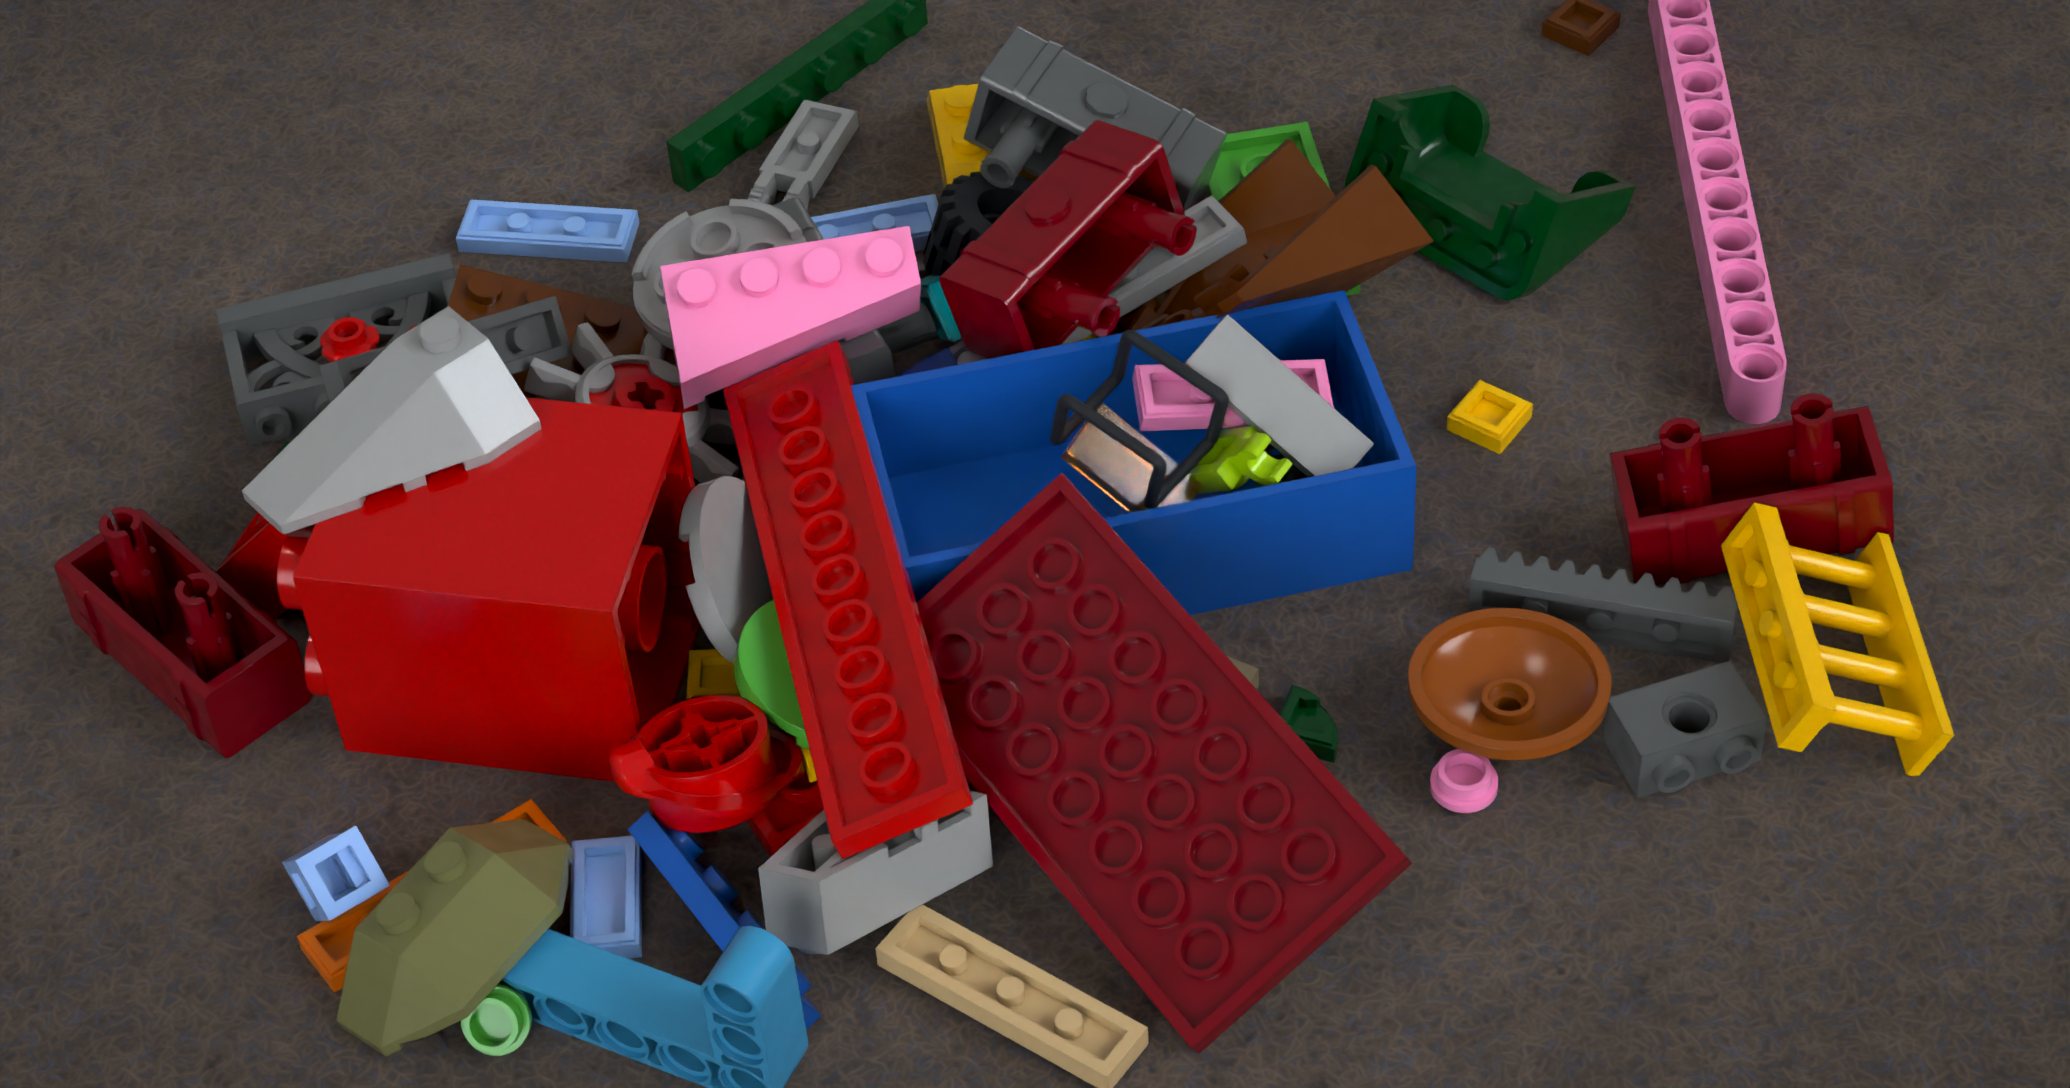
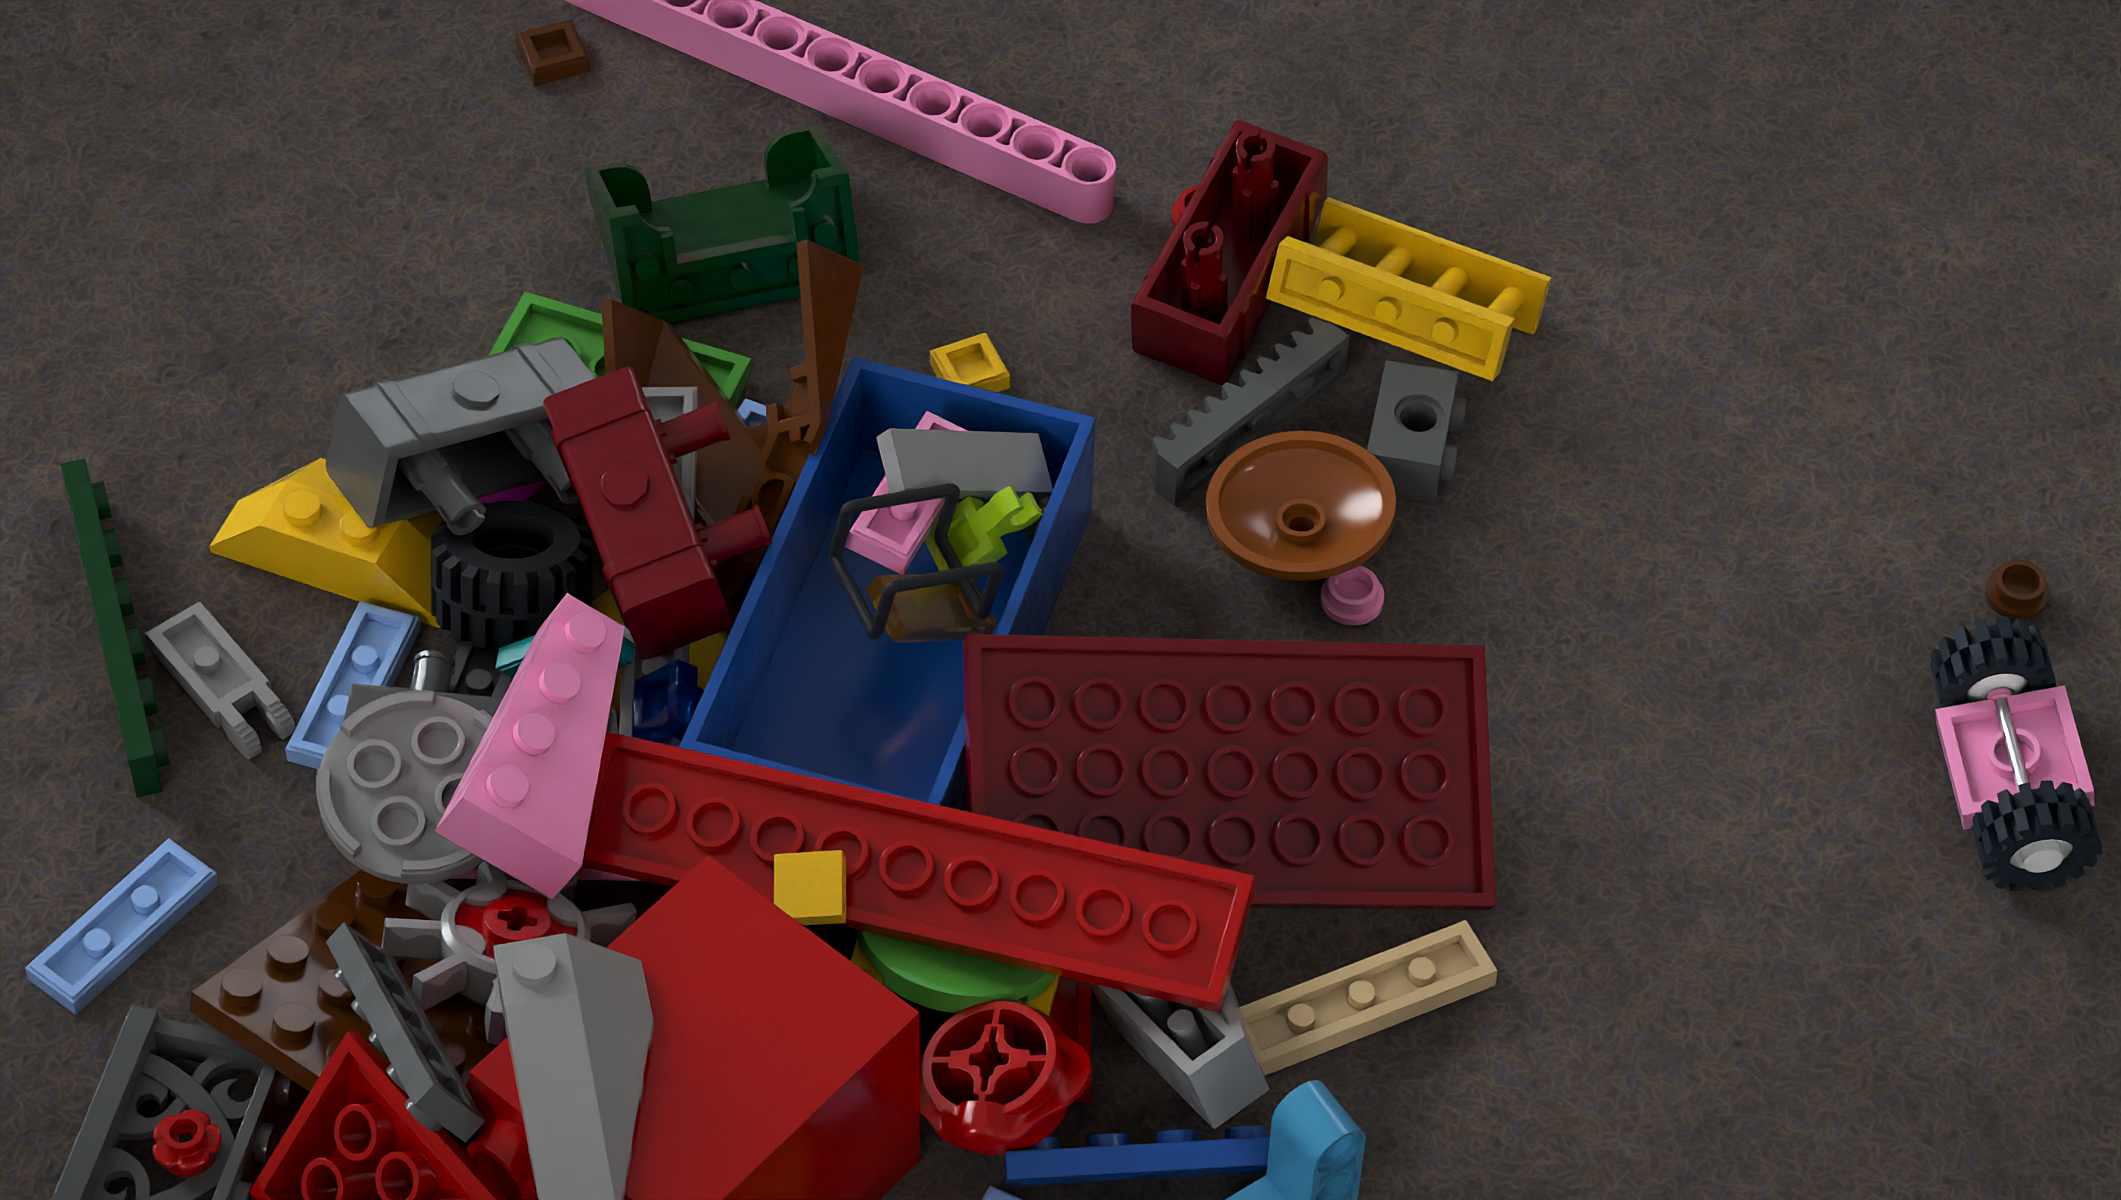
camera: 65 degrees left, 5 degrees up
(770, 530) = (811, 886): none -> yellow tile

